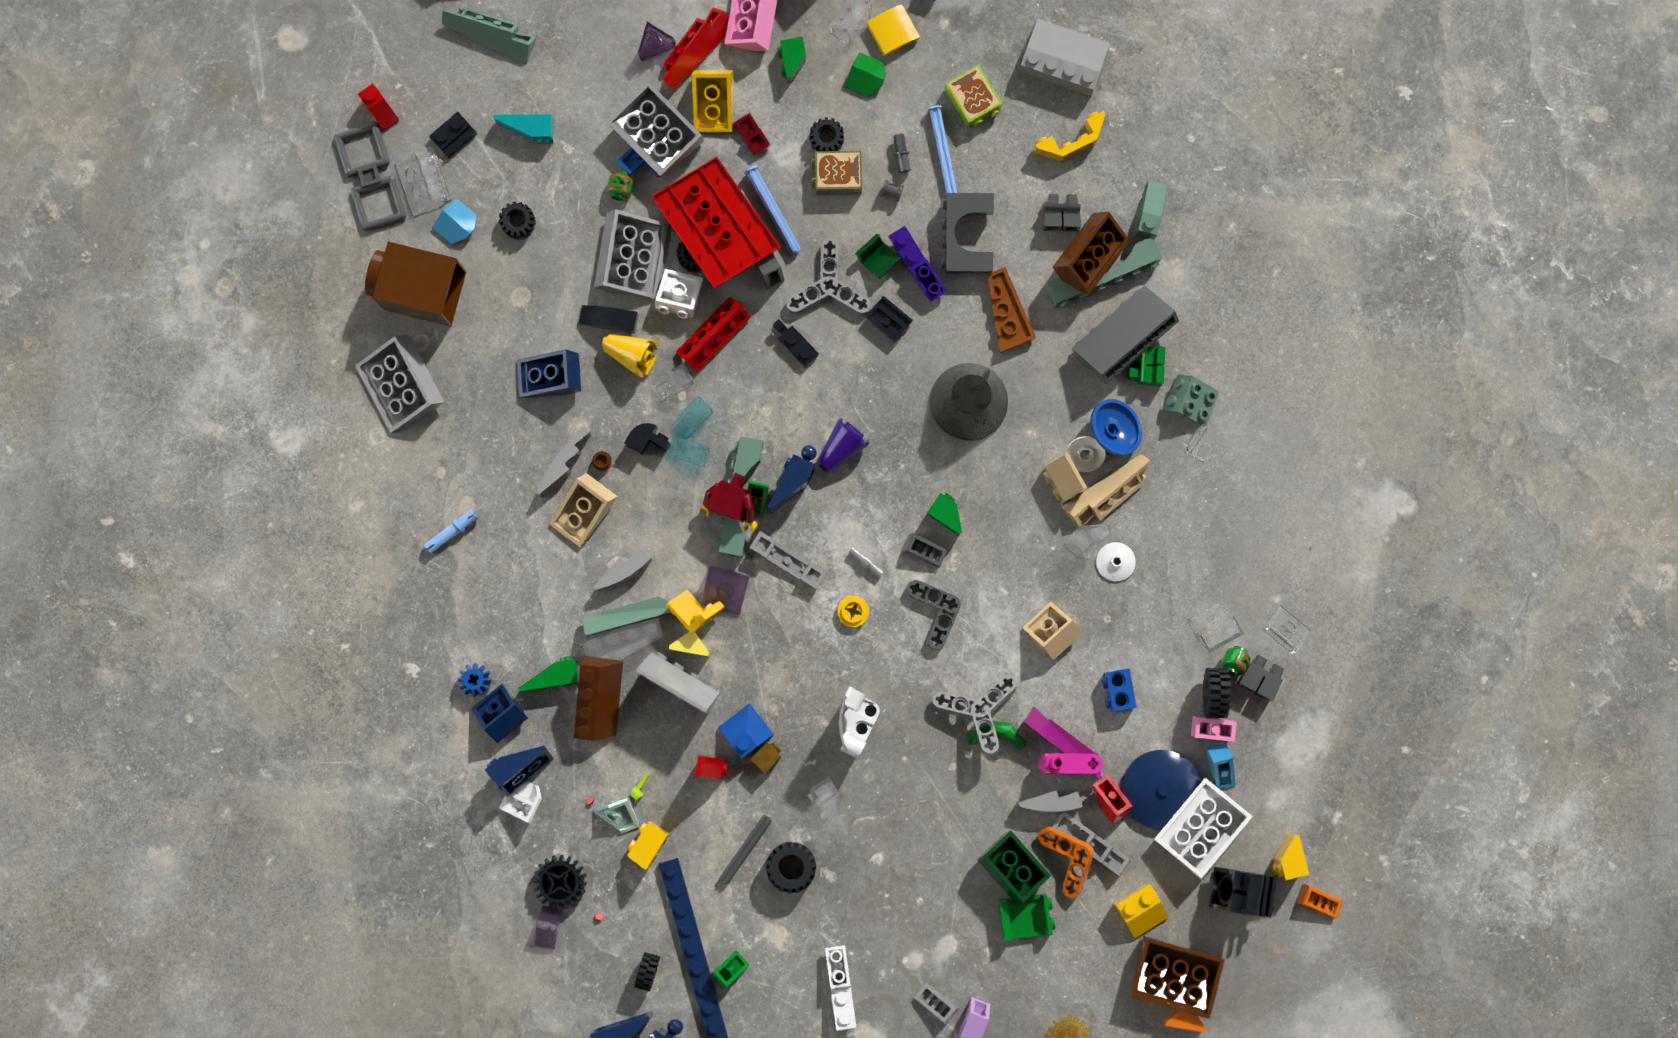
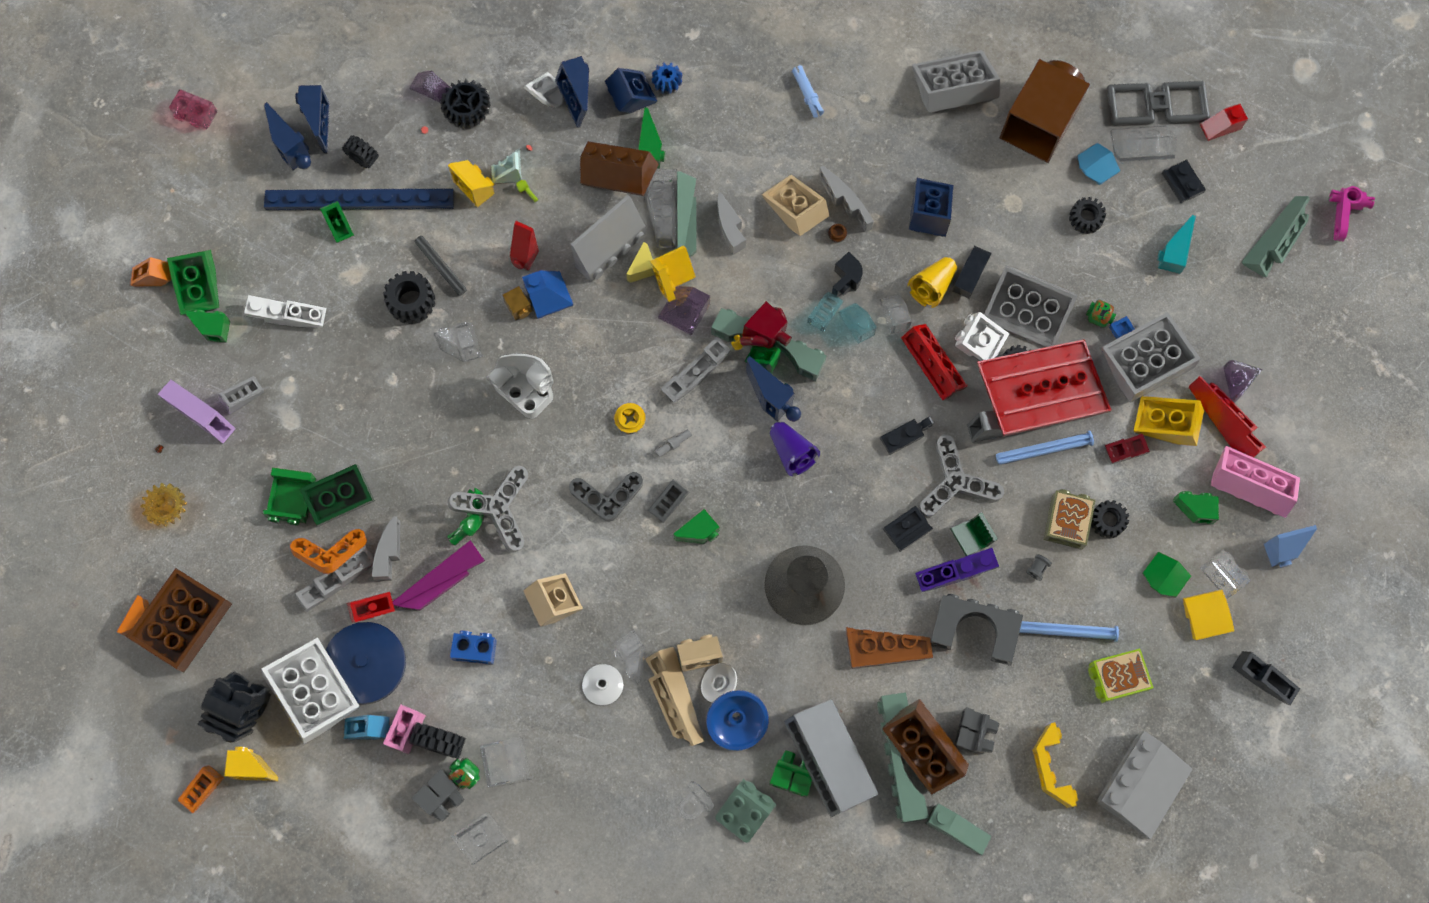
camera: 105 degrees right, 10 degrees down
(901, 153) = (1076, 587): dark grey axle -> none
(1069, 763) = (416, 574): dark pink piece -> none
(1141, 910) = (256, 607): yellow slope -> none

